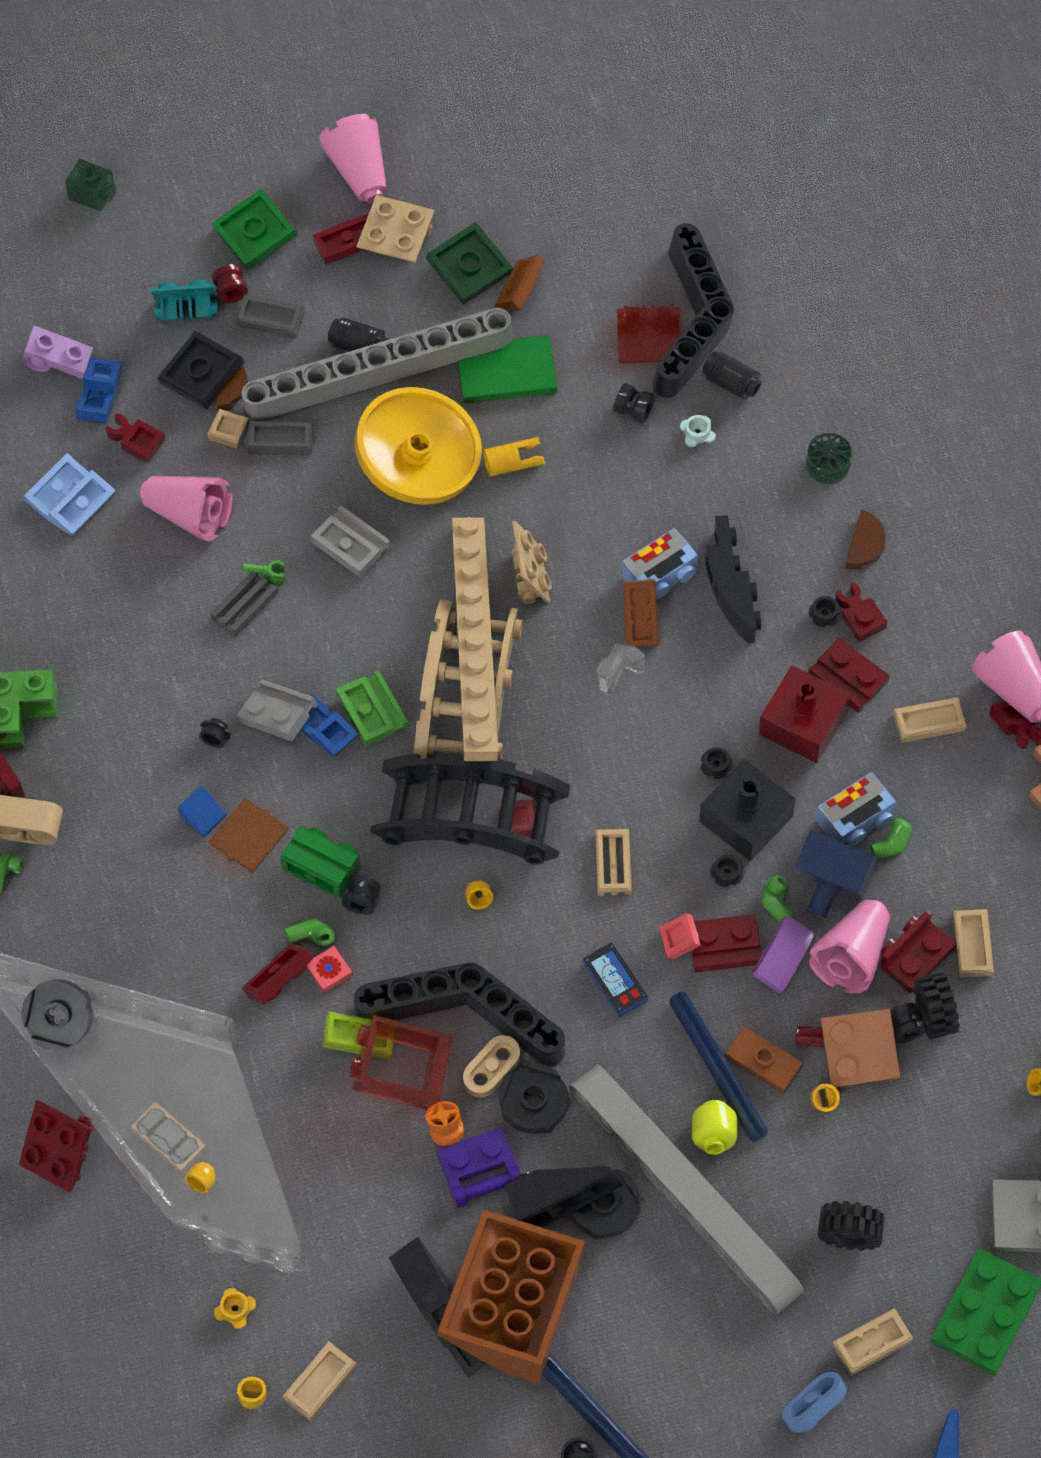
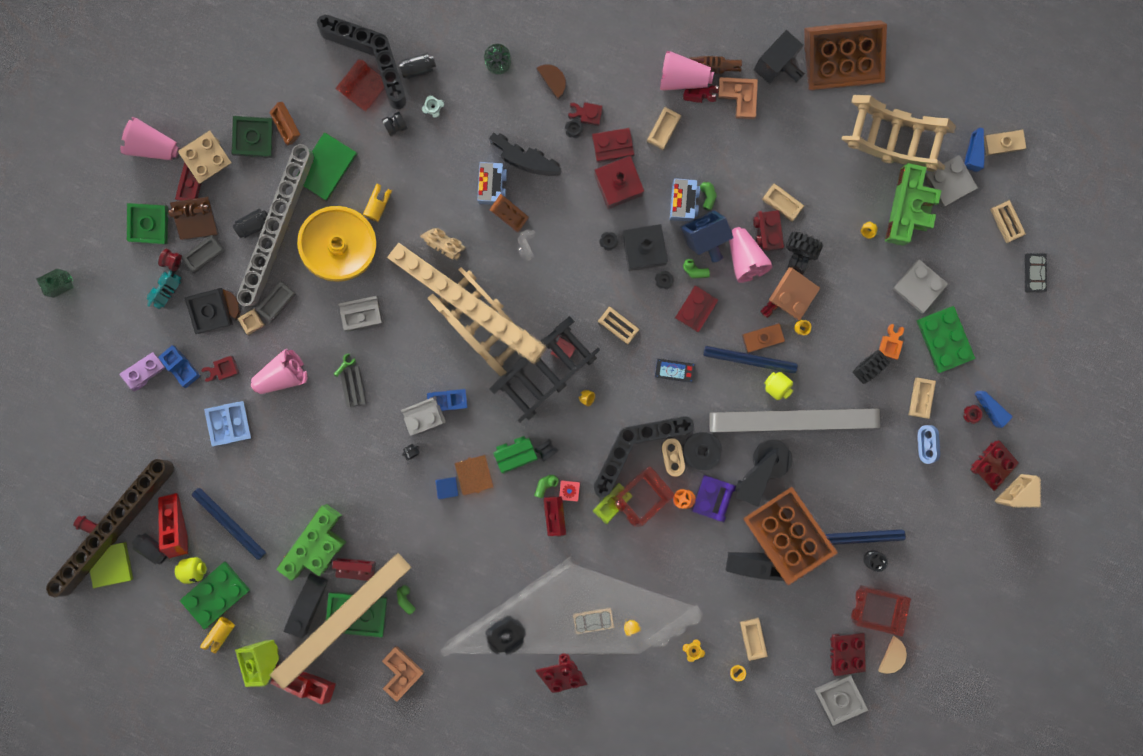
camera: 55 degrees left, 25 degrees up
(306, 271) = (193, 218): none -> reddish brown hinge
(371, 708) = (456, 372): bright green plate -> none
(679, 936) = (679, 327): coral tile -> none
(783, 954) = (725, 288): medium lavender slope -> none
(908, 1239) = (890, 345): none -> orange plate
(922, 1430) = (977, 414): none -> dark red plate

